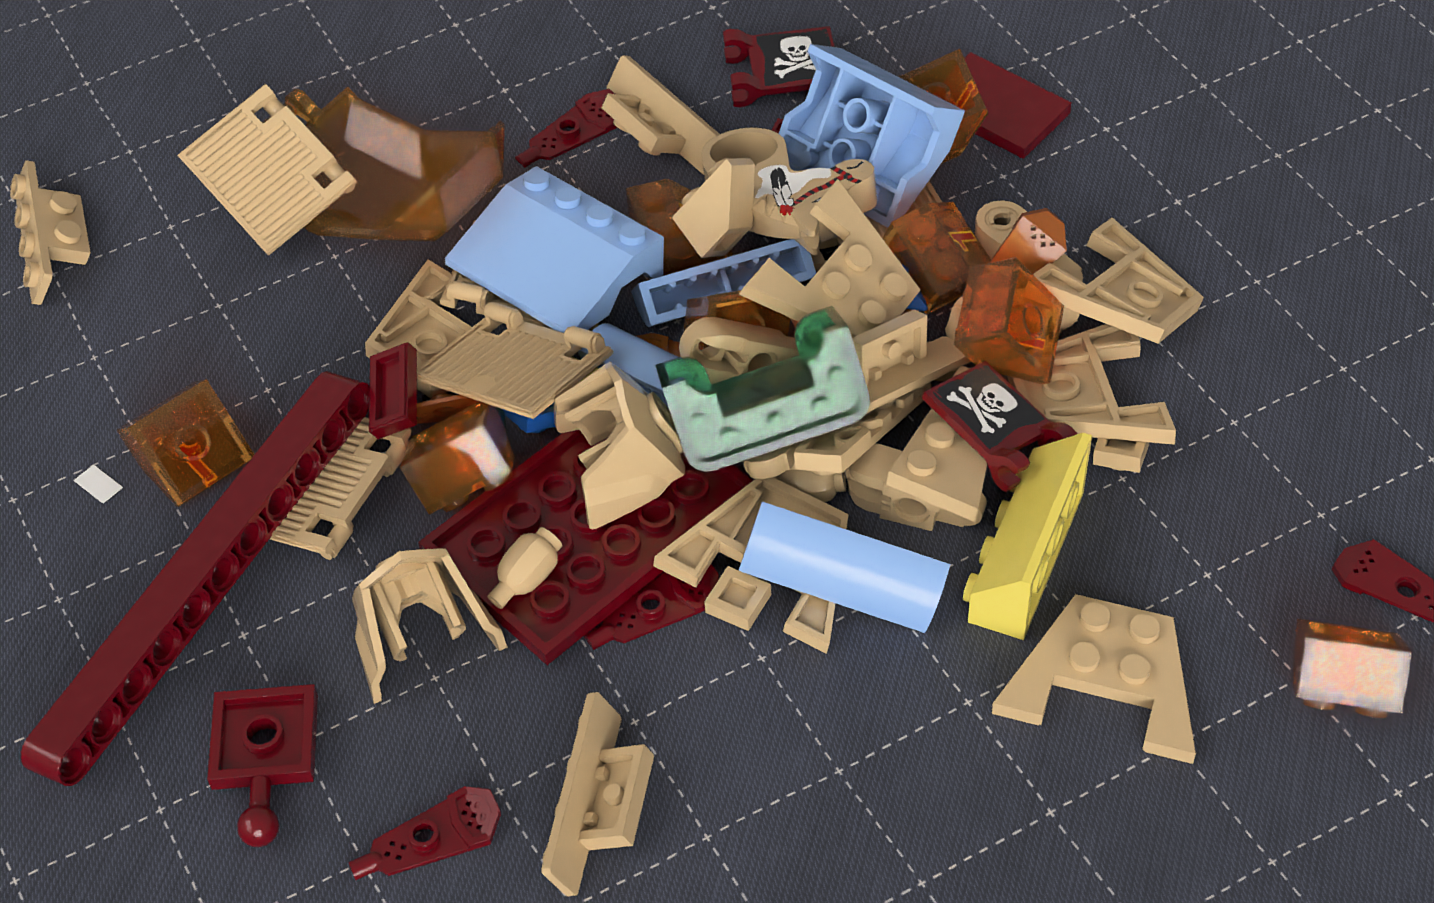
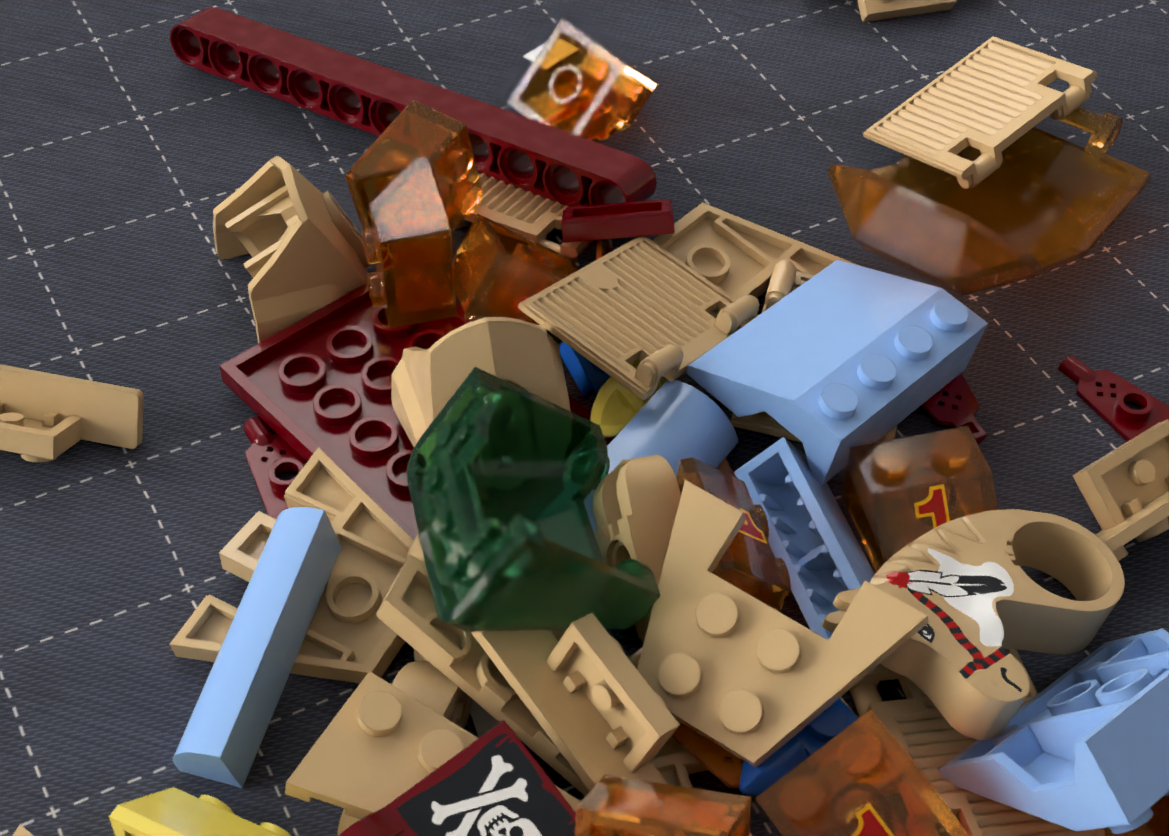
camera: 90 degrees right, 5 degrees down
(283, 760) = (157, 166): dark red plate -> none
(349, 507) = (415, 134): none -> clear orange slope
(444, 499) = (411, 250): none -> clear orange slope
(450, 834) = (39, 314): dark red piece -> none
(525, 565) = (335, 336): tan plant -> none
(719, 209) = (905, 506): tan slope -> none

